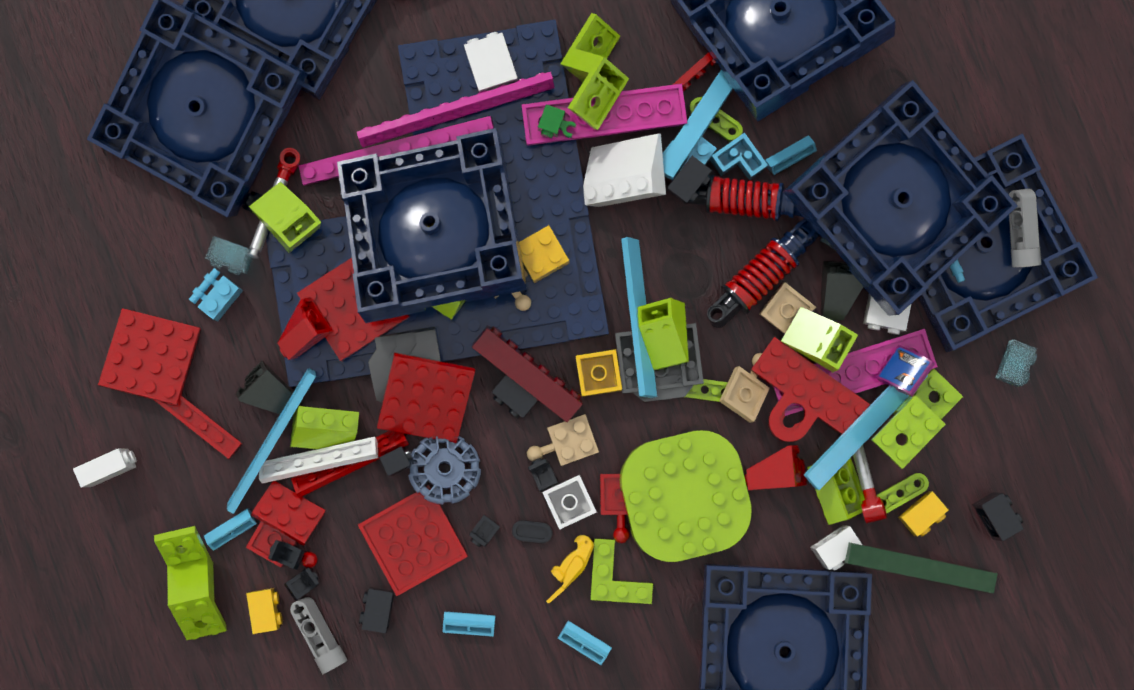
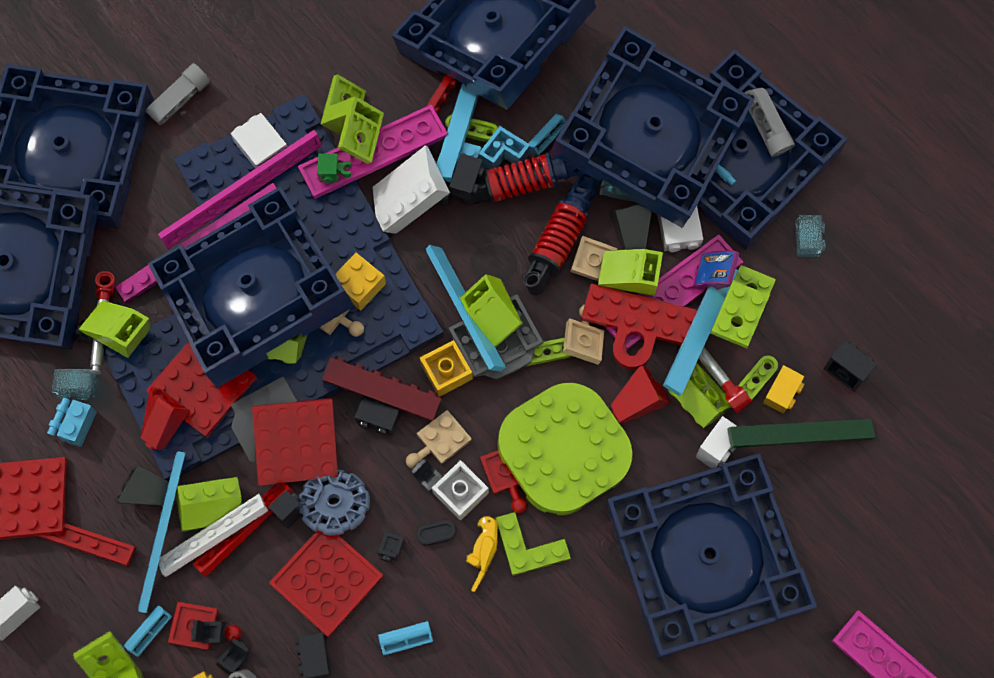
camera: 20 degrees left, 15 degrees down
(288, 513) = (199, 595): red plate -> none
(584, 642) = (521, 616): medium azure piece -> none

